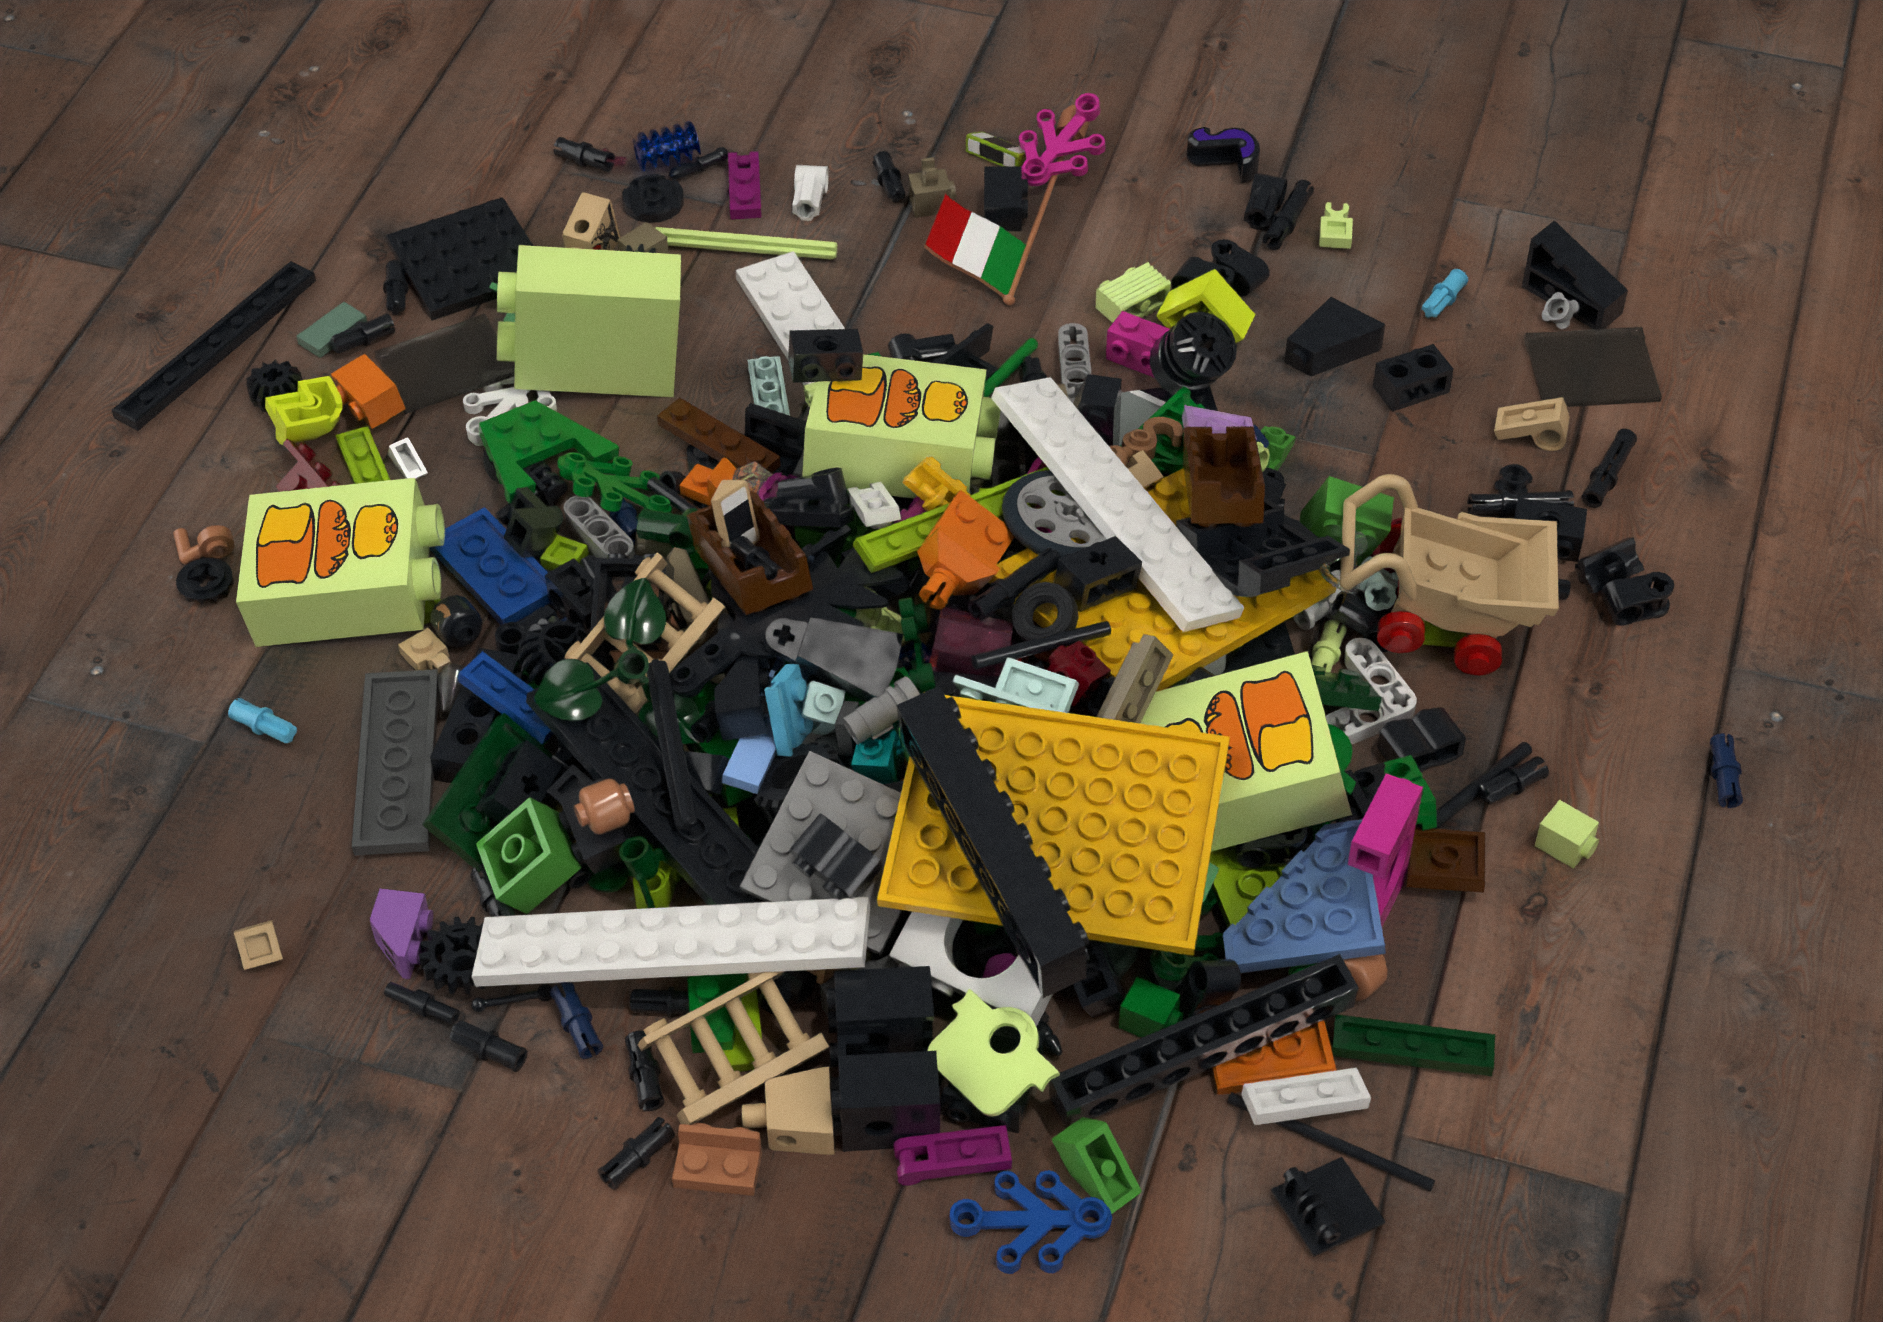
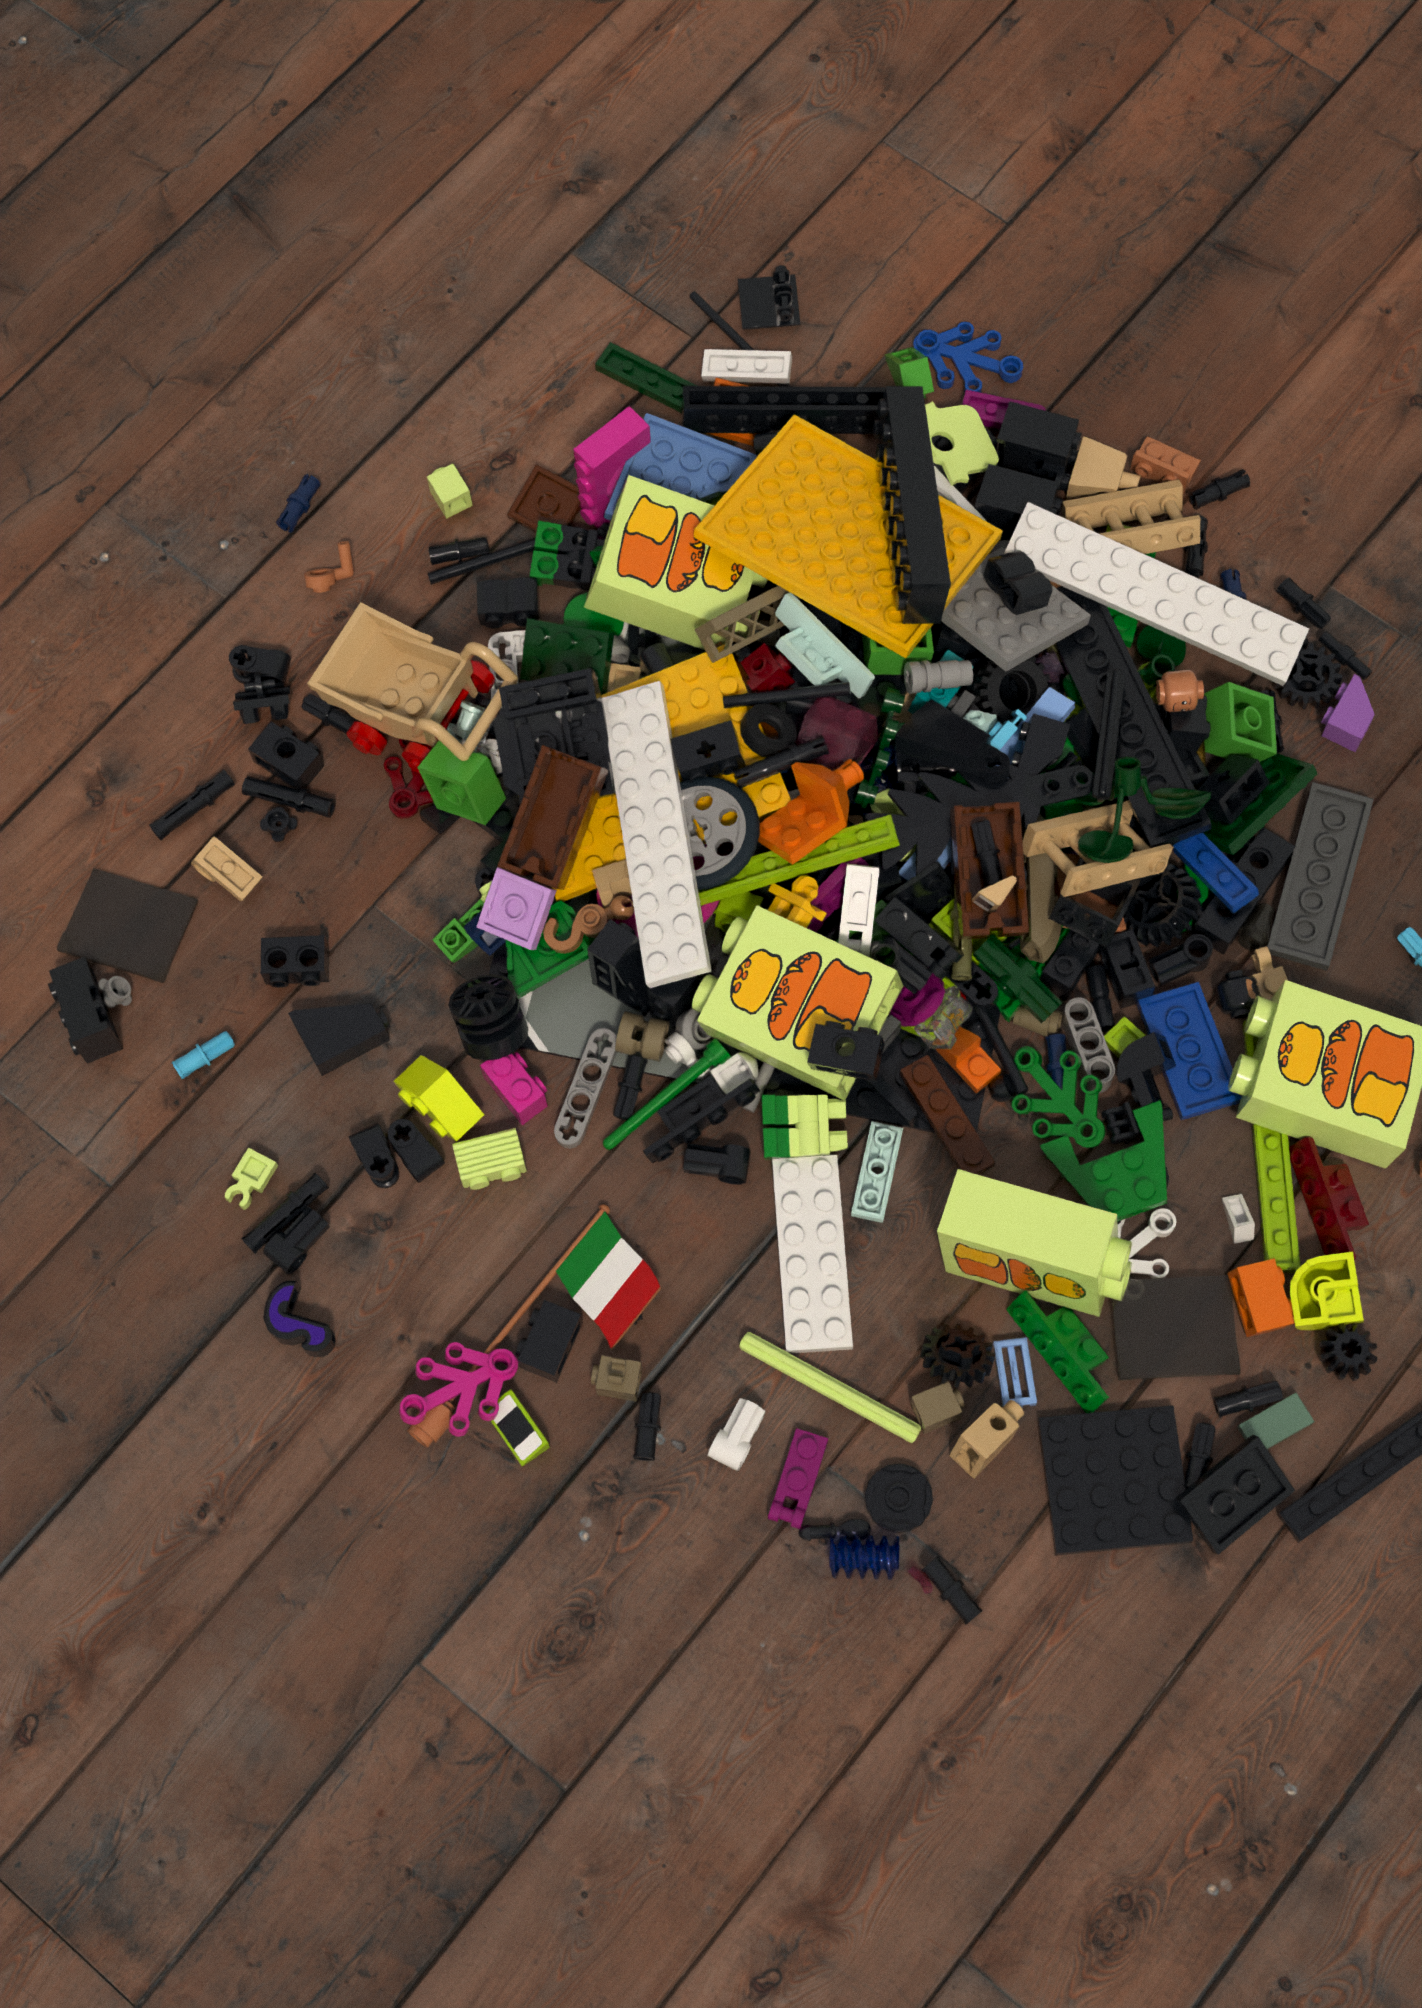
camera: 155 degrees left, 20 degrees up
(356, 264) = (1235, 1494): none -> black plate
(1648, 707) = (323, 578): none -> nougat plate

